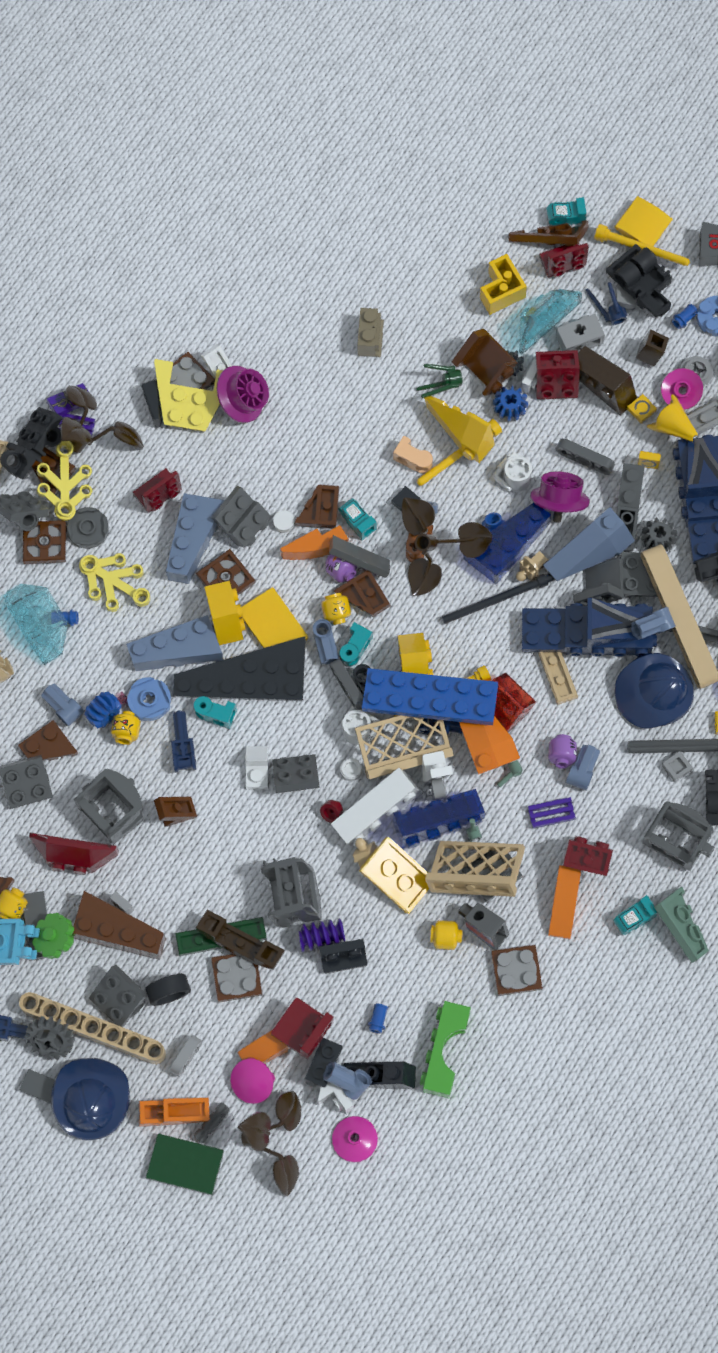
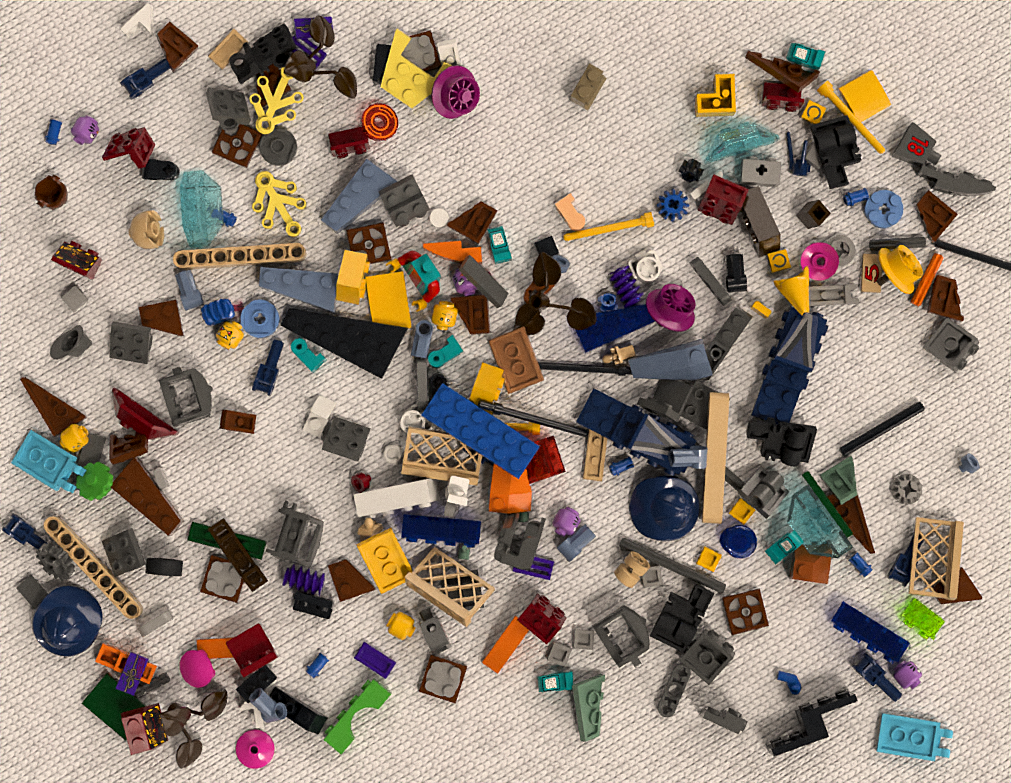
camera: 15 degrees right, 15 degrees up
(73, 885) = (127, 447): none -> reddish brown wing
(105, 638) = (230, 253): none -> tan beam
(182, 448) = (383, 112): none -> clear red tile
(186, 1115) = (132, 673): none -> dark purple tile
(225, 1170) = (143, 728): none -> slope
(293, 577) = (422, 273): none -> torso
(368, 917) = (348, 580): none -> reddish brown wing
(429, 615) = (517, 359): none -> medium nougat tile
(436, 985) = (375, 660): none -> dark purple tile
(437, 667) = (498, 409): none -> black bar
(450, 380) = (635, 160): dark green plant -> none
(466, 430) = (623, 219): yellow wedge -> none
(486, 360) = (671, 160): reddish brown panel -> none
(502, 498) = (626, 286): none -> dark purple piece
(537, 788) = (521, 550): none -> dark grey animal
(585, 677) = (620, 466): none -> blue pin
(601, 260) = (813, 112): none -> yellow tile
(608, 442) = (736, 279): none -> black piece
(624, 888) = (559, 654): none -> light grey tile
(641, 861) = (583, 639): none -> light grey tile
(648, 770) = (632, 569): none -> tan wheel
(666, 530) = (742, 379): dark grey gear -> none

